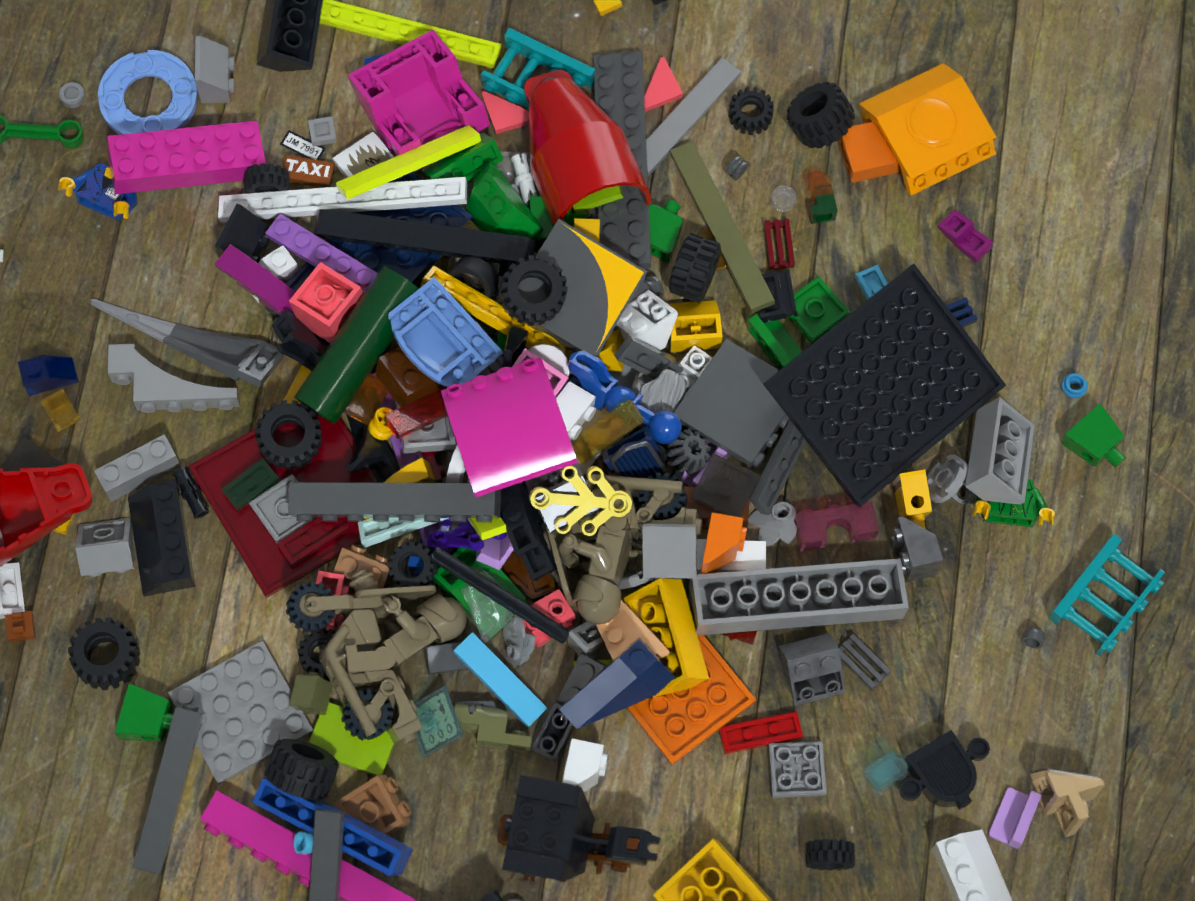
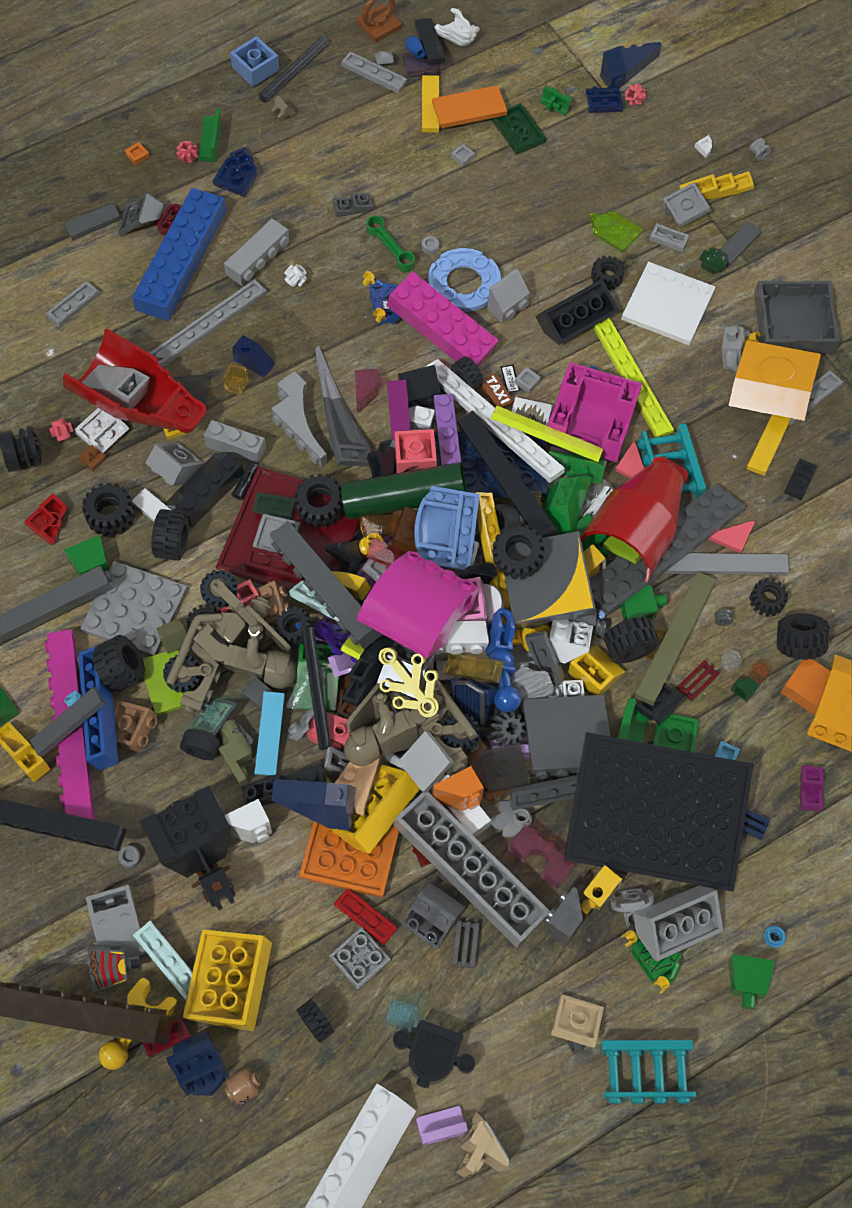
camera: 50 degrees right, 5 degrees down
(55, 725) = (47, 519): none -> red slope
(137, 608) = (148, 504): none -> white tile
(188, 290) = (367, 387): none -> clear pink slope
(195, 611) = (170, 534): none -> black tyre
(456, 755) = (199, 744): none -> black tyre
(1015, 619) = (577, 1021): none -> tan tile

